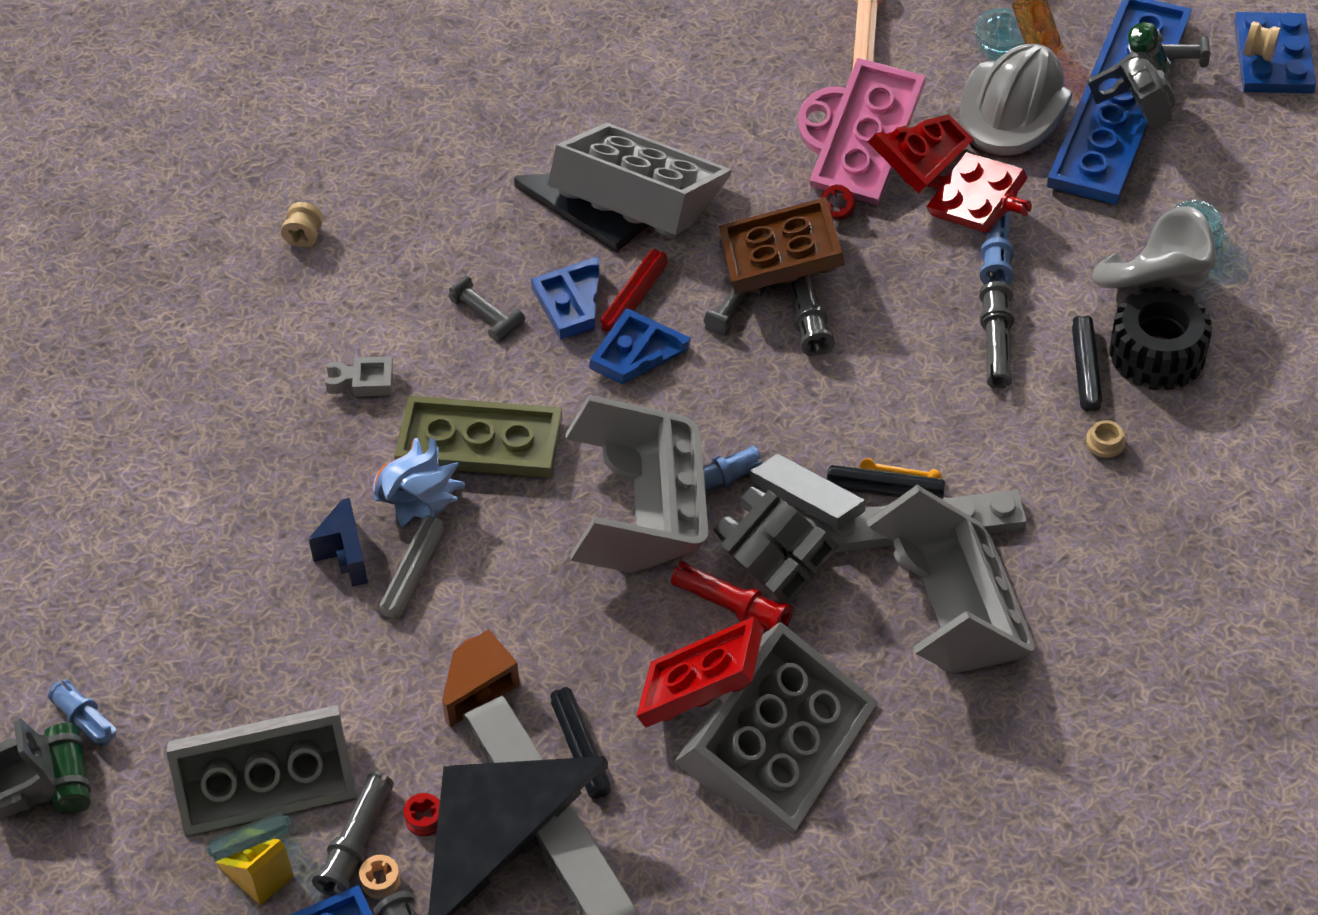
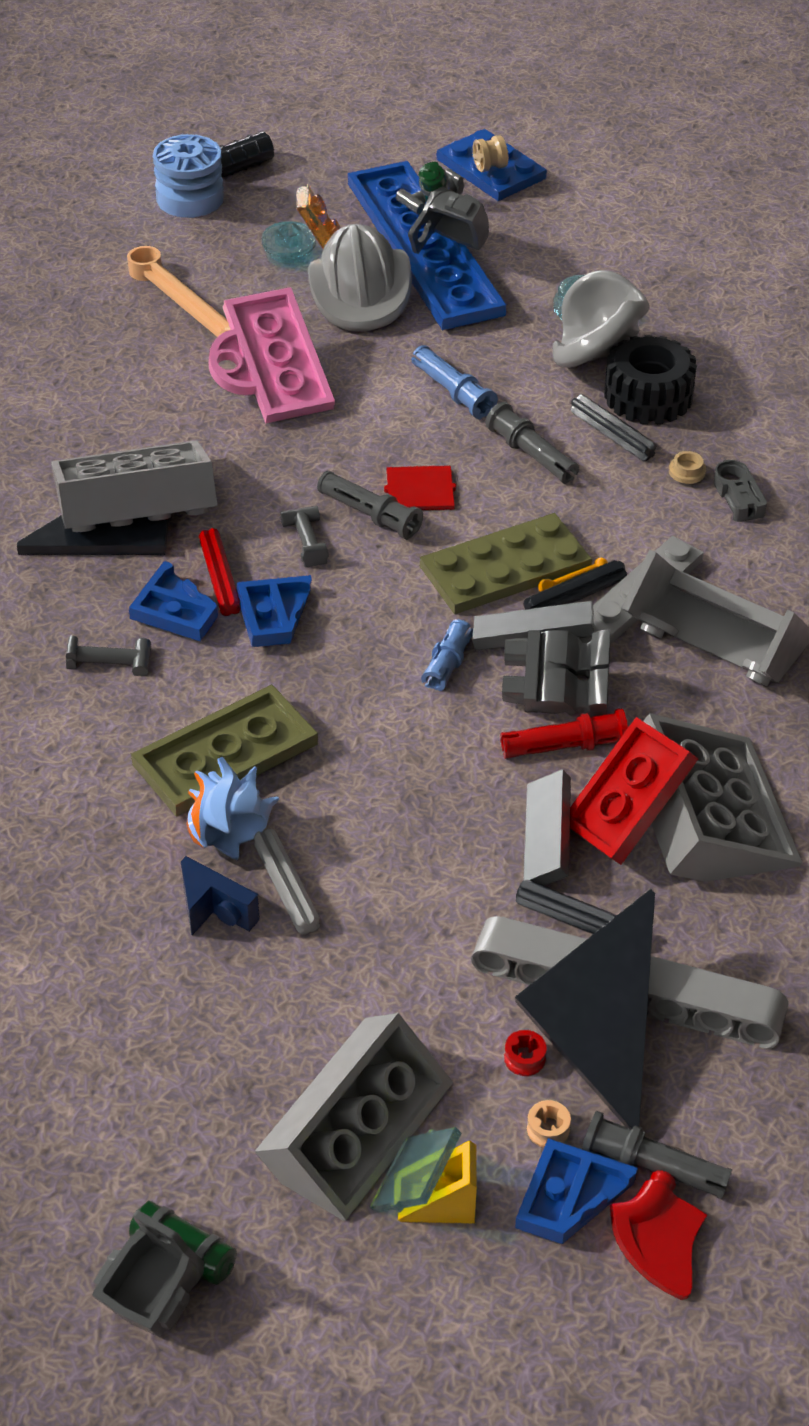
camera: 45 degrees left, 5 degrees down
(82, 712) = (137, 1190): medium blue axle -> none
(347, 851) = (501, 1122): dark grey pin -> none
(366, 377) = (70, 763): light grey plate -> none
(477, 674) = (445, 918): dark orange slope -> none
(630, 661) = (547, 828): none -> tile
(669, 485) = (420, 684): light grey windscreen -> none
(781, 246) = (310, 467): reddish brown plate -> none
(847, 196) = (312, 410): red bush -> none
(858, 424) = (504, 563): none -> olive plate
(868, 317) = (422, 486): none -> red piece
(922, 150) = (340, 345): red wing -> none
(978, 193) = (408, 354): plate -> none
(1127, 491) = (741, 495): none -> dark grey piece

